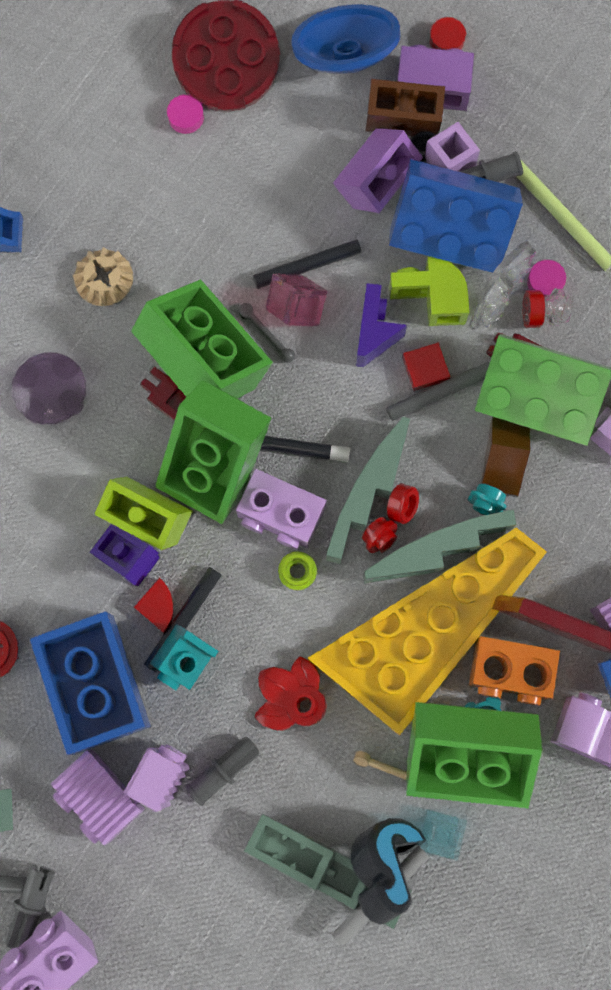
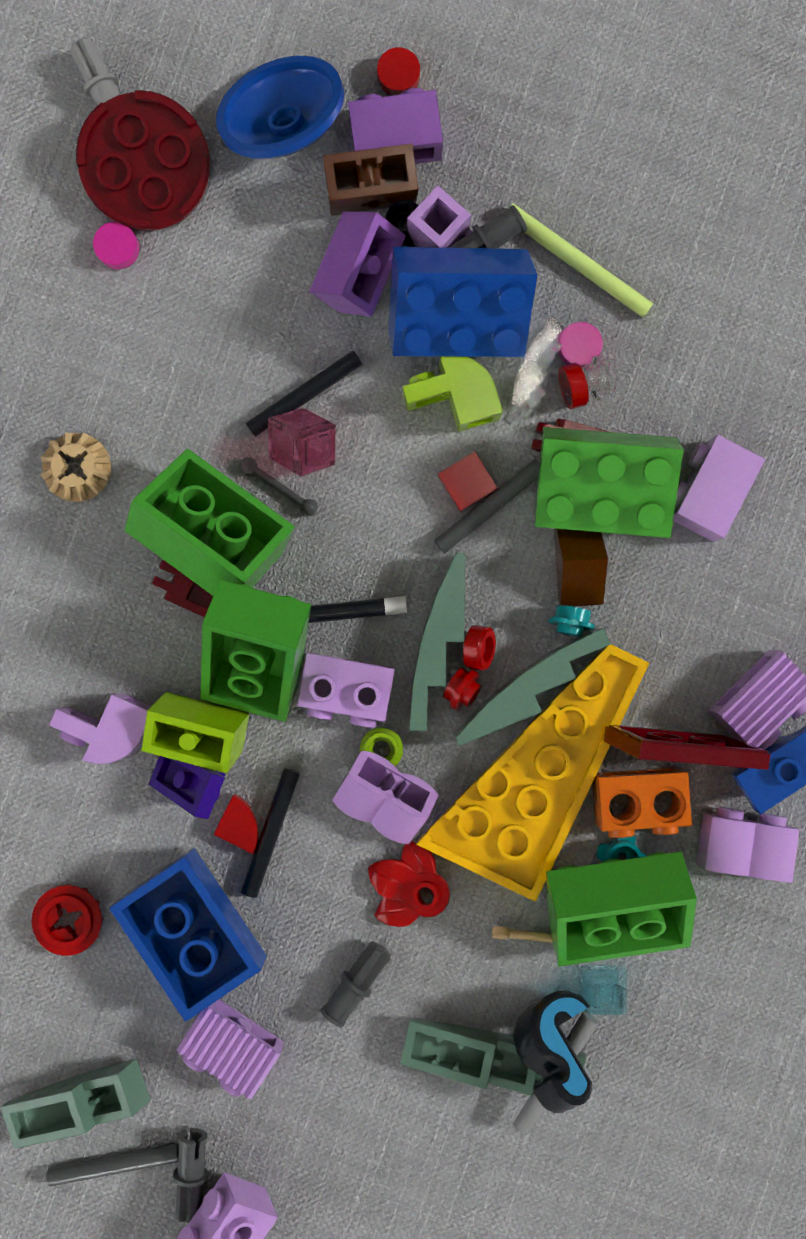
camera: 15 degrees left, 10 degrees up
(49, 388) = (51, 612): clear purple dish -> none
(72, 502) = (111, 737): none -> lavender brick
(157, 777) = (289, 1018): lavender brick -> none
(177, 646) = (277, 867): teal brick -> none
(290, 608) = (388, 799): none -> lavender brick
(375, 334) = (399, 462): dark purple slope -> none

